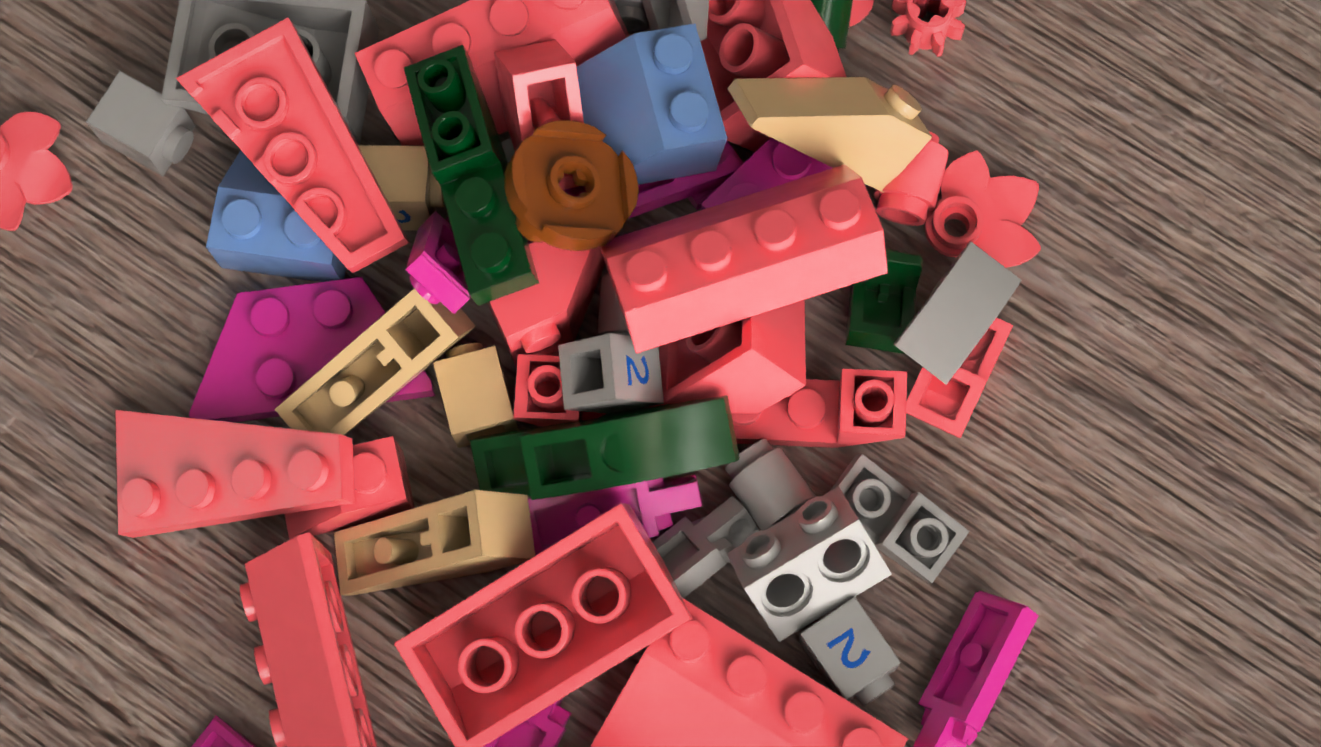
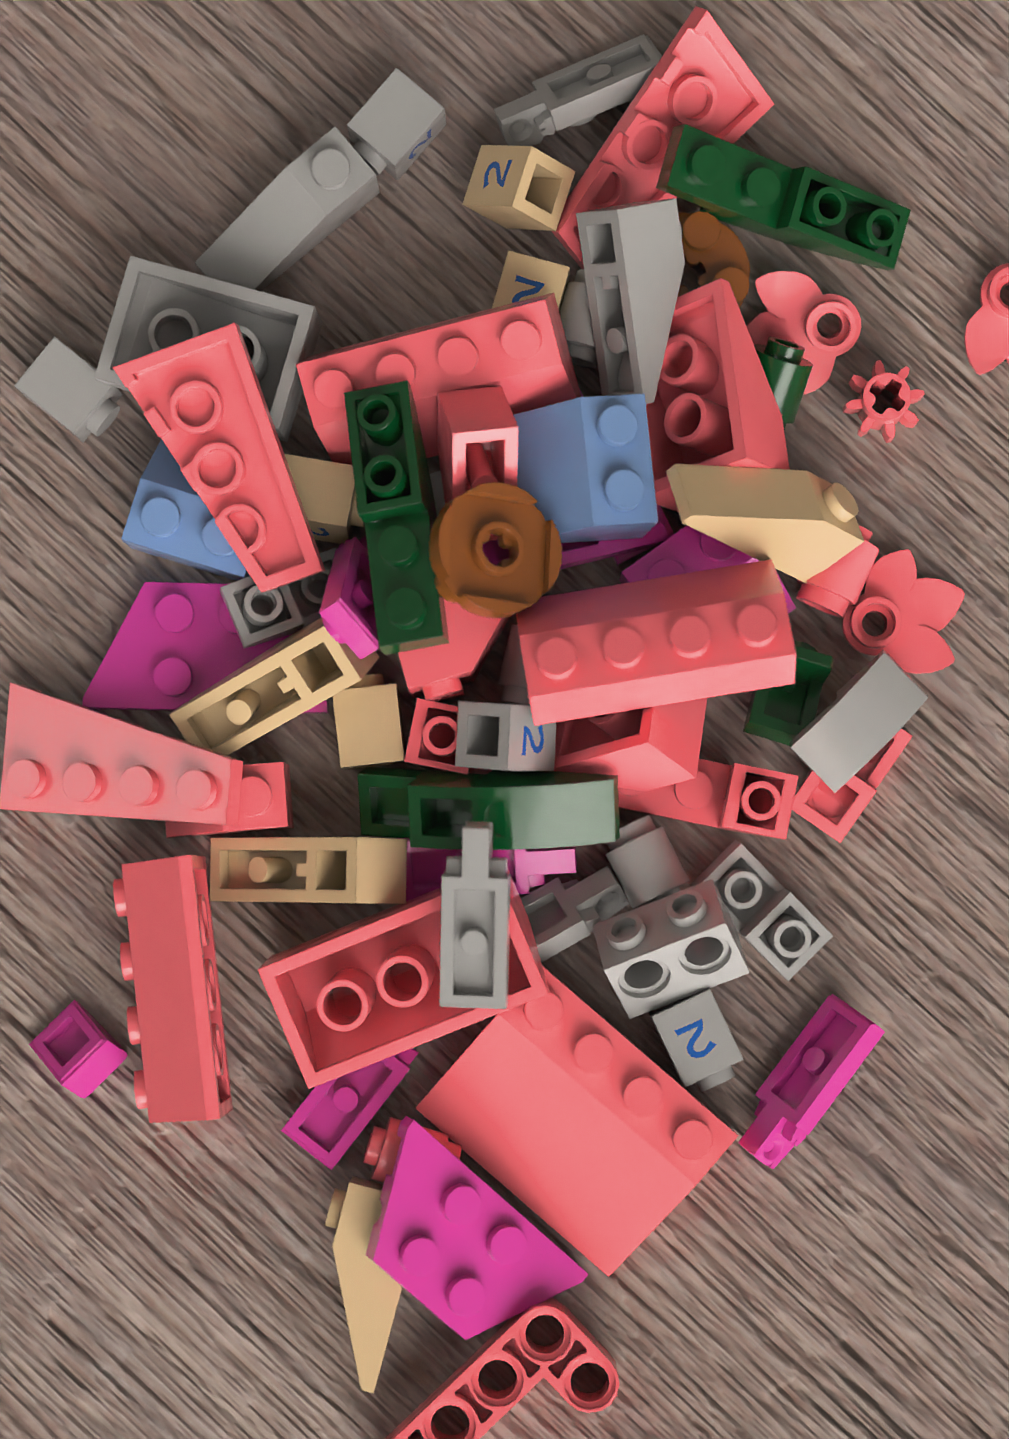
camera: 10 degrees right, 10 degrees up
(363, 297) = (278, 612): none -> light grey slope
(606, 555) = (475, 924): none -> light grey hinge

